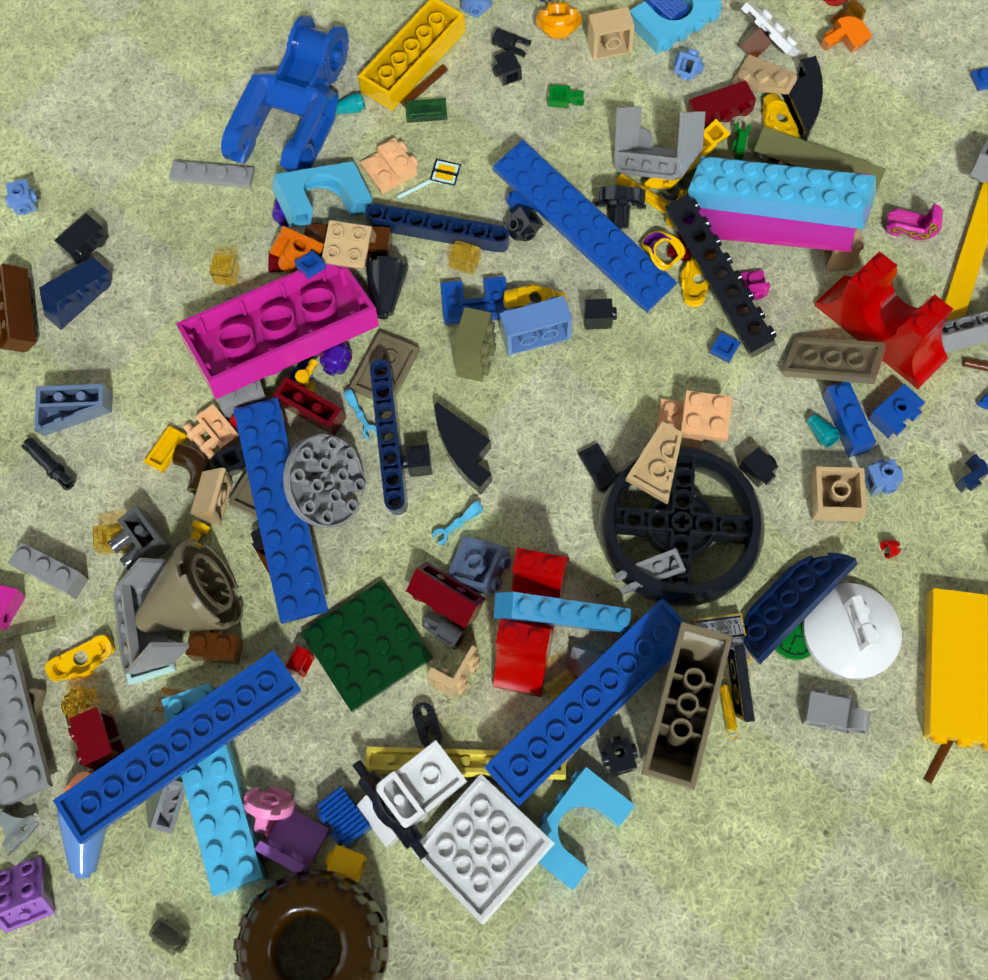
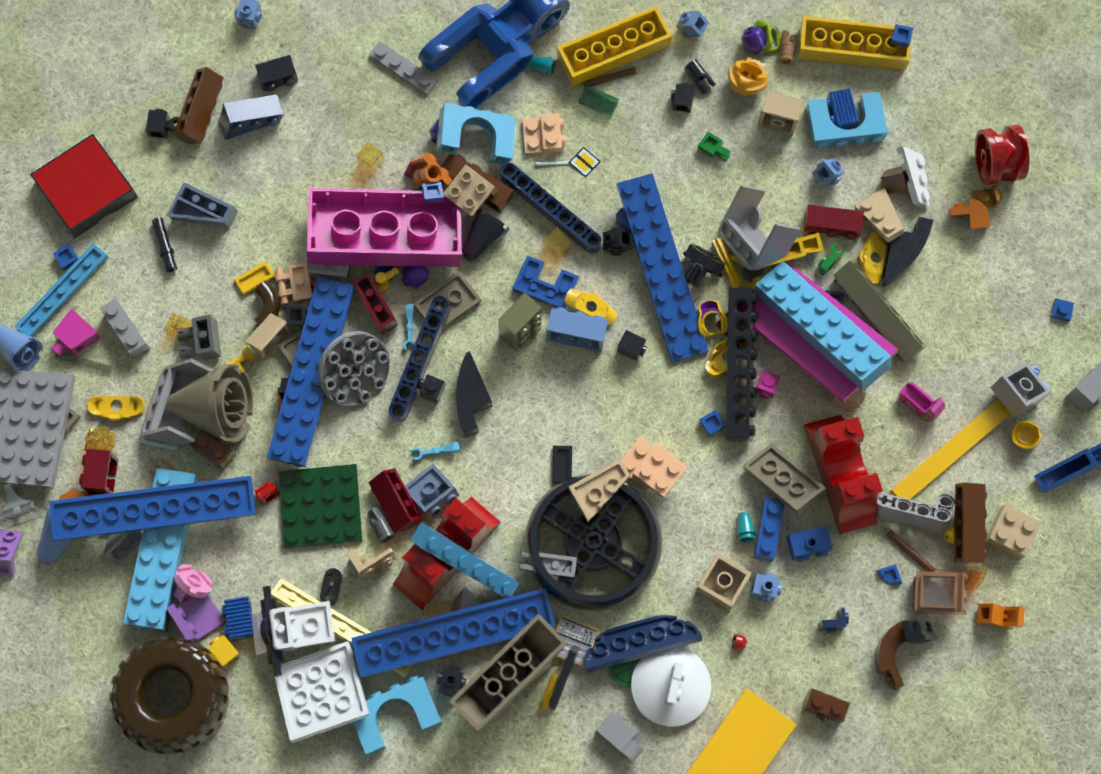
camera: 20 degrees right, 5 degrees up
(169, 936) = (81, 634): clear smoke brick -> none
(759, 467) = (679, 530): black brick -> none

